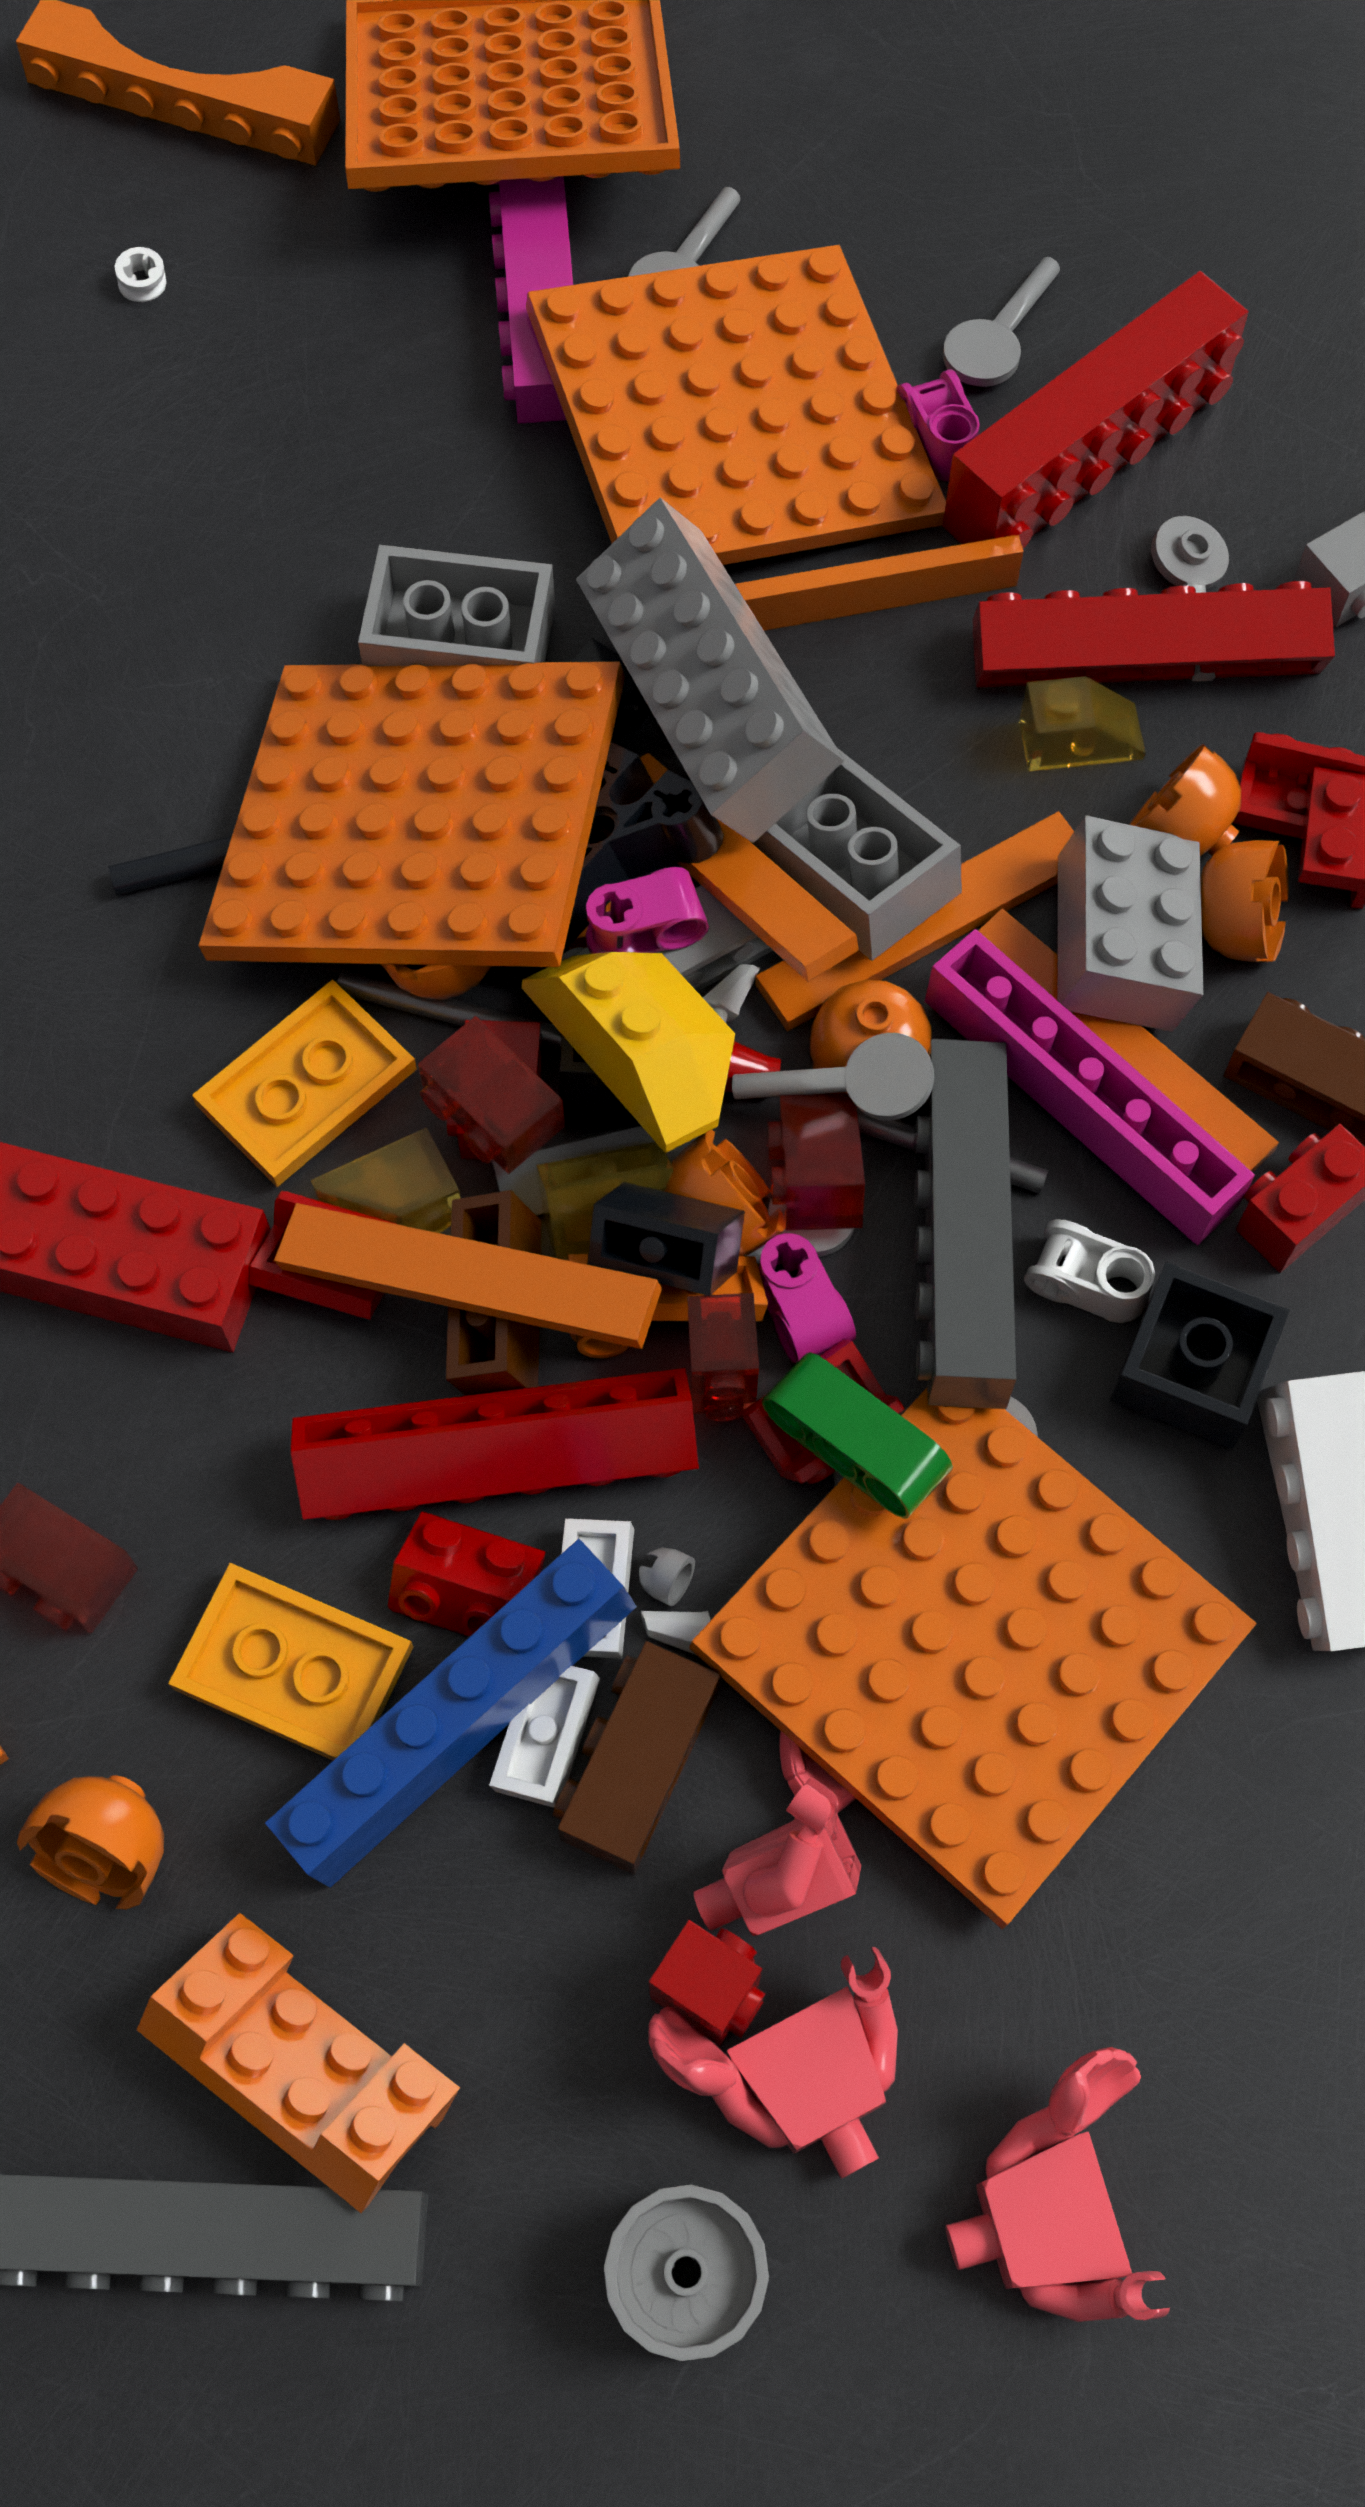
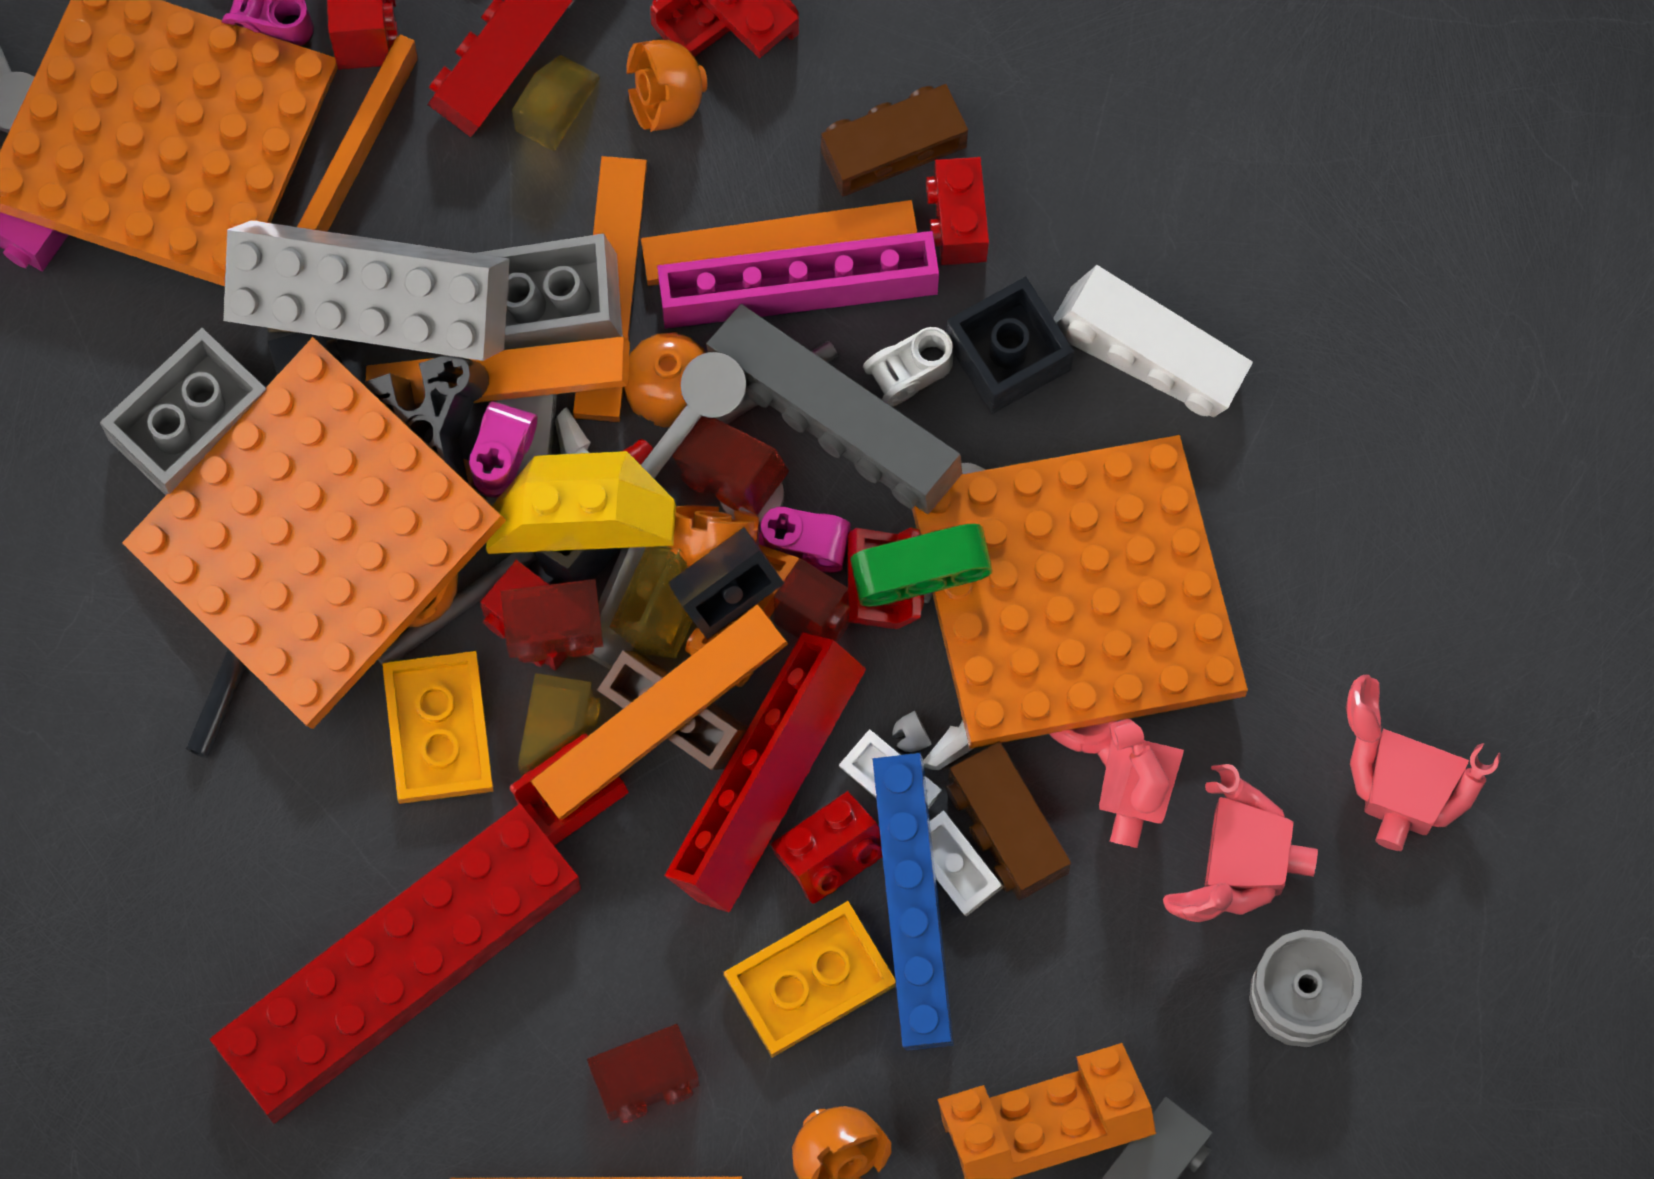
camera: 55 degrees left, 5 degrees up
(710, 1982) = (1165, 866): red brick -> none
(1129, 924) = (716, 175): light grey brick -> none
(1243, 900) = (747, 100): orange cylinder -> none

